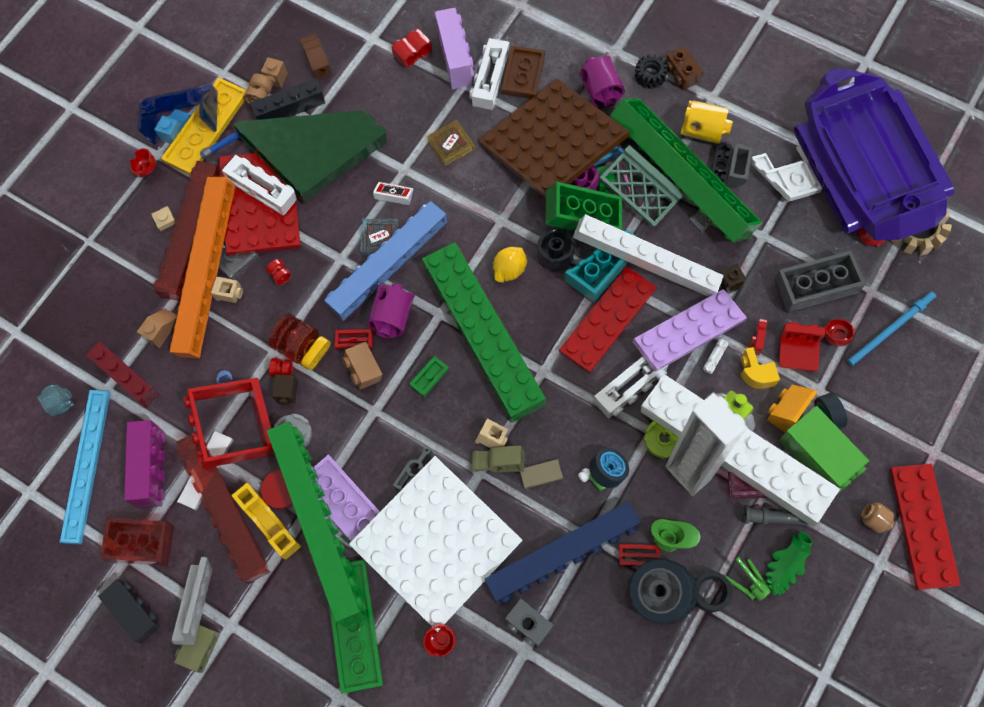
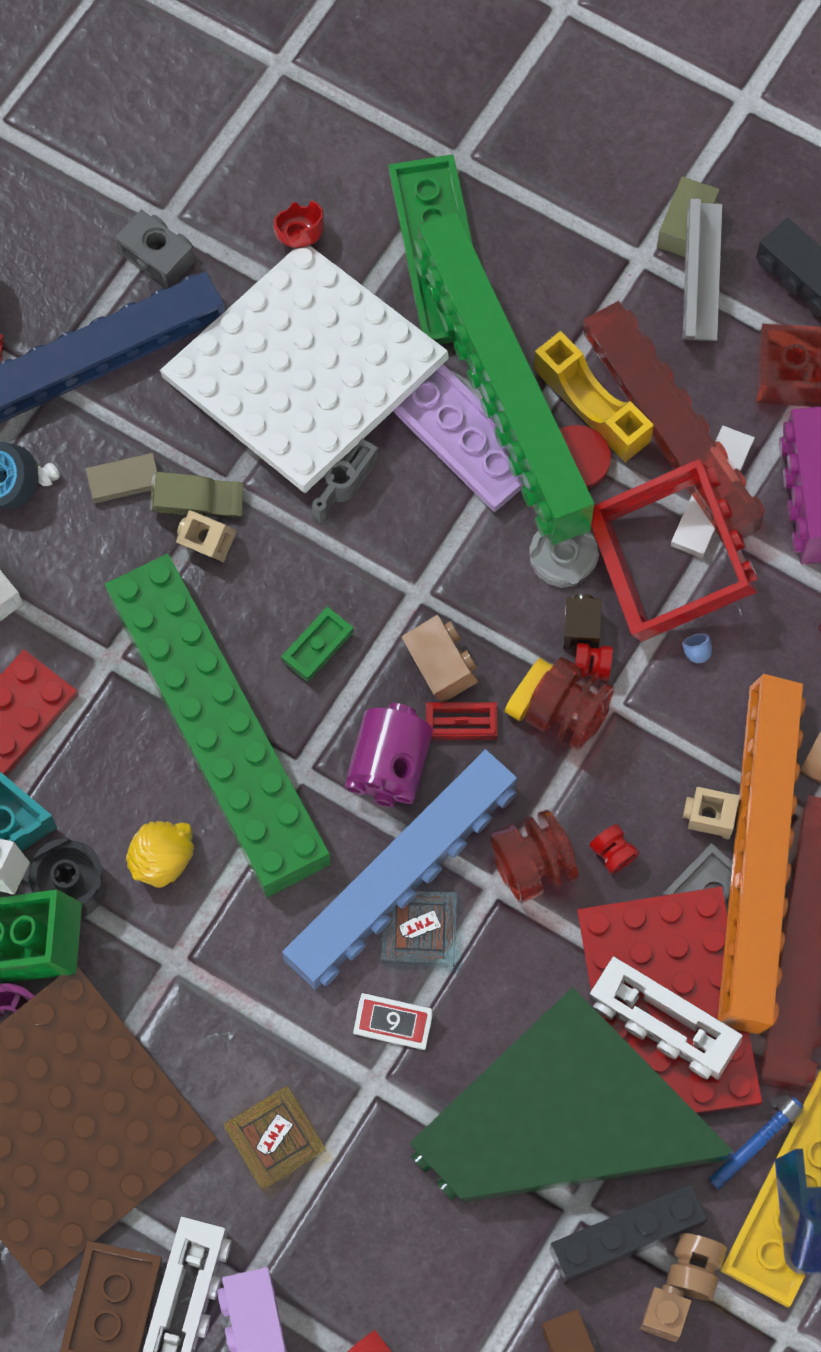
camera: 175 degrees right, 0 degrees up
(320, 260) = (528, 858): none -> clear red wheel

